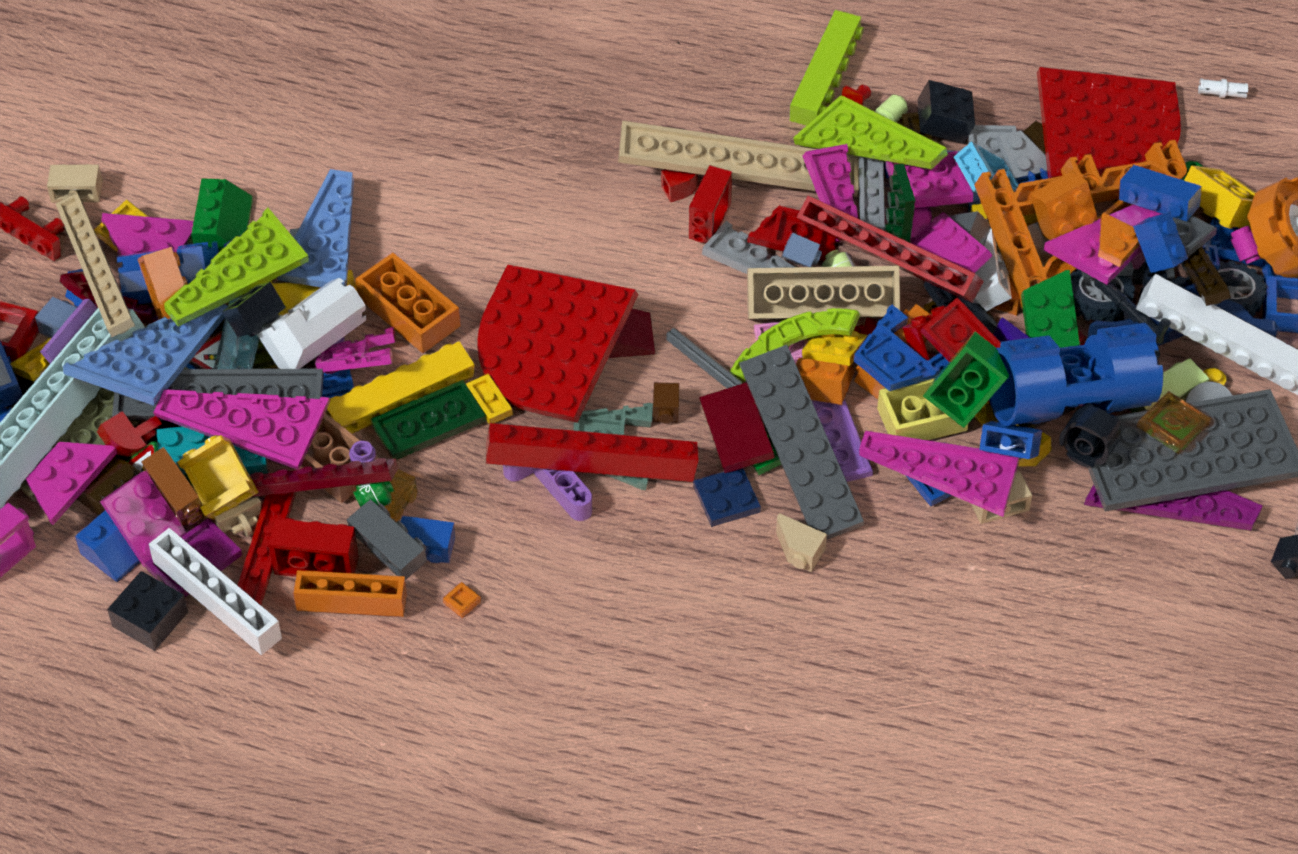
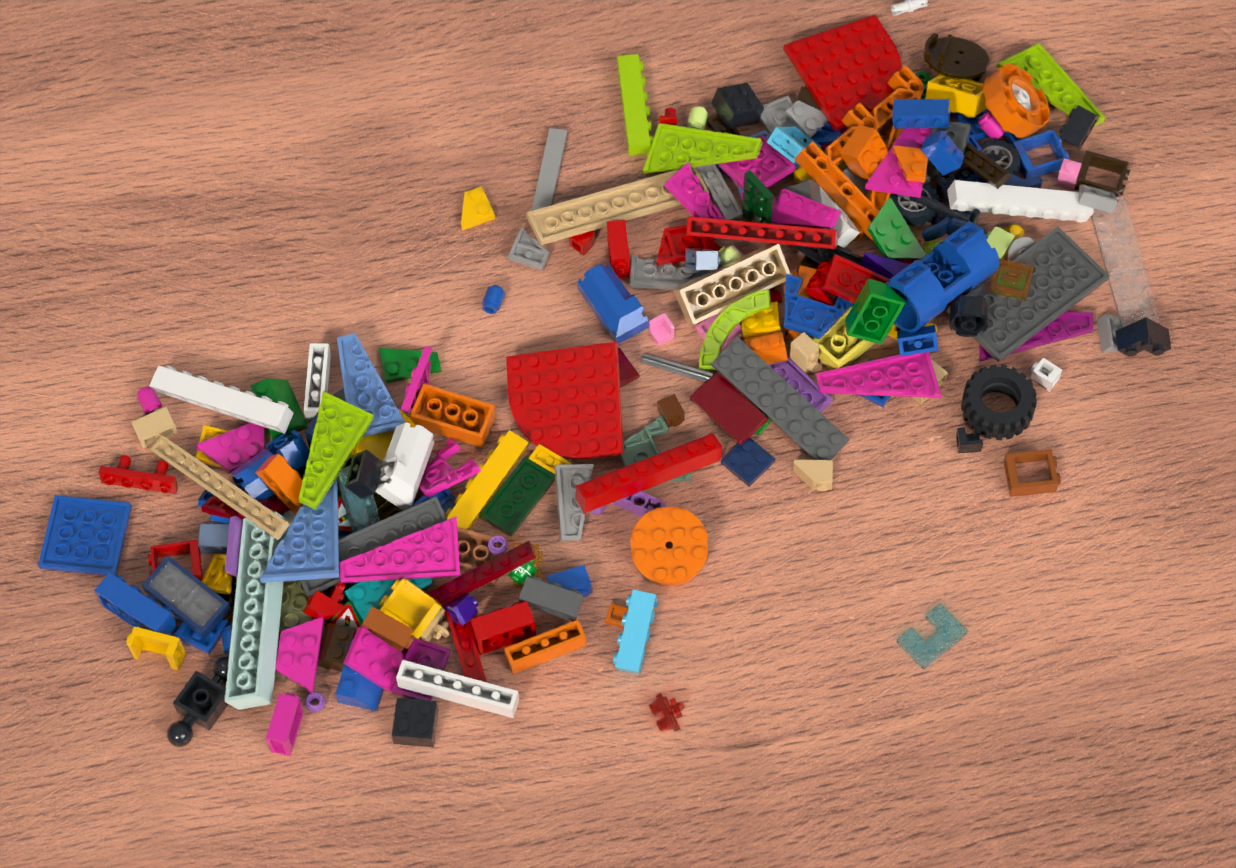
camera: 25 degrees left, 10 degrees up
(50, 535) = (312, 697): none -> medium lavender plate
(88, 152) = (148, 400): none -> dark pink brick
(161, 179) = (222, 399): none -> white brick
(277, 505) = (462, 609): none -> dark purple slope
(287, 195) = (317, 378): none -> white brick
(394, 232) = (399, 363): none -> green wing
(398, 240) = (419, 377): none -> dark pink wing
(453, 732) = (662, 705): none -> clear red hips
(469, 623) = (635, 632): none -> medium azure wedge
(472, 467) = (569, 513): none -> light grey wing
(534, 203) = (493, 299): none -> blue brick
(566, 544) = (666, 527): none -> orange piece
(576, 106) = (476, 209): none -> yellow wing
(606, 171) = (528, 251): none -> light grey wing
(666, 257) = (612, 303): none -> blue brick
(691, 94) = (550, 168): none -> light grey tile
(709, 310) = (661, 329): none -> bright pink panel
(819, 808) = (927, 651): none -> clear light blue plate
(865, 402) = (805, 353): none -> tan brick
(1013, 589) = (968, 442): none -> black panel
(1068, 674) = (1030, 488): none -> dark orange window
(1073, 583) = (998, 380): none -> black tyre
(1161, 551) = (1046, 374): none -> white brick
(1245, 158) = (945, 57): none -> dark brown piece
(1273, 530) = (1107, 326): none -> light grey slope

